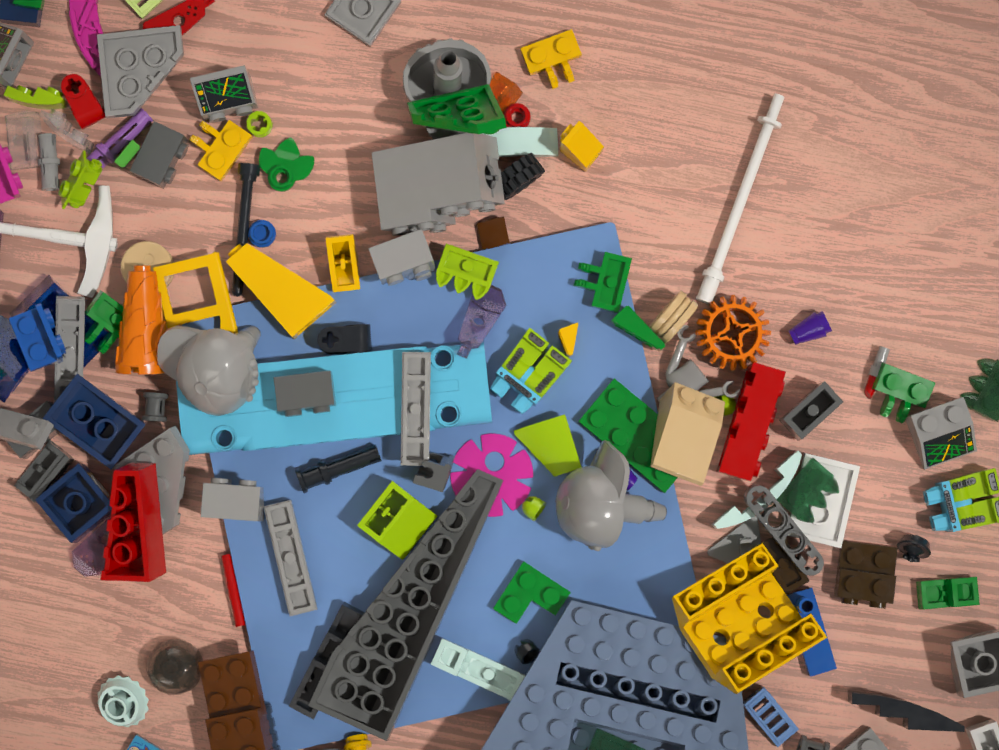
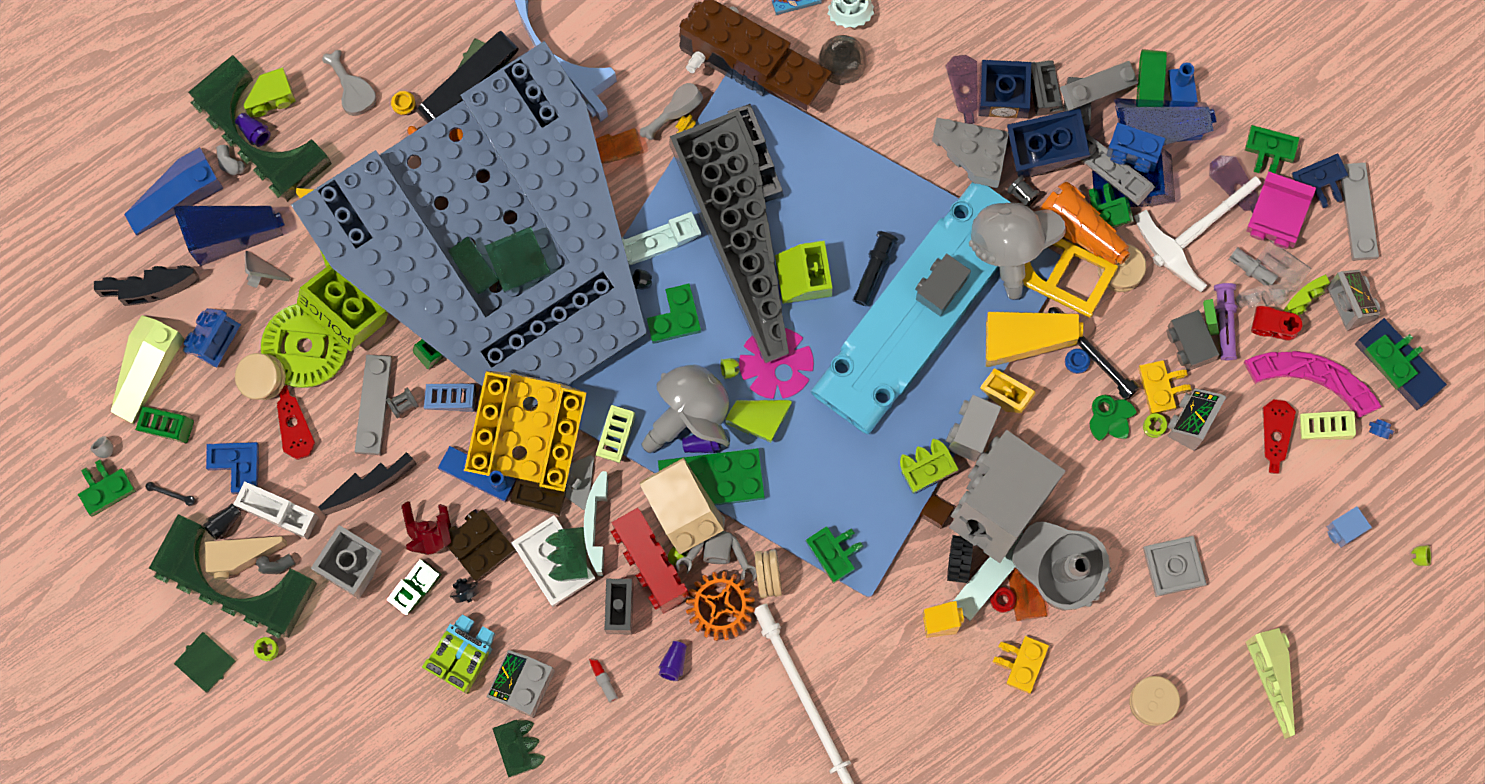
camera: 135 degrees right, 10 degrees down
(74, 189) = (1221, 275): lime hinge -> none
(135, 526) = (955, 107): red wedge -> none
(136, 65) = (1268, 377): light grey plate -> none
(232, 501) = (914, 178): light grey slope -> none
(233, 591) = (857, 137): red piece -> none
(290, 558) = (843, 187): light grey plate -> none
(351, 338) = (952, 350): black piece -> none
(415, 408) = (865, 346): light grey plate -> none
(434, 474) = (809, 318): dark grey hinge -> none
(465, 110) = (1038, 549): green plate -> none
(484, 311) = (885, 454): clear purple piece -> none
(523, 377) = (821, 437): hips -> none
(567, 337) = (818, 490): yellow slope -> none
(633, 325) = (785, 542): green slope -> none
(654, 558) = (610, 421): none -> yellowish green slope
(783, 530) = (559, 508): dark grey beam -> none
(898, 619) = (427, 536): none -> dark red piece
(902, 385) = (576, 686): green hinge -> none

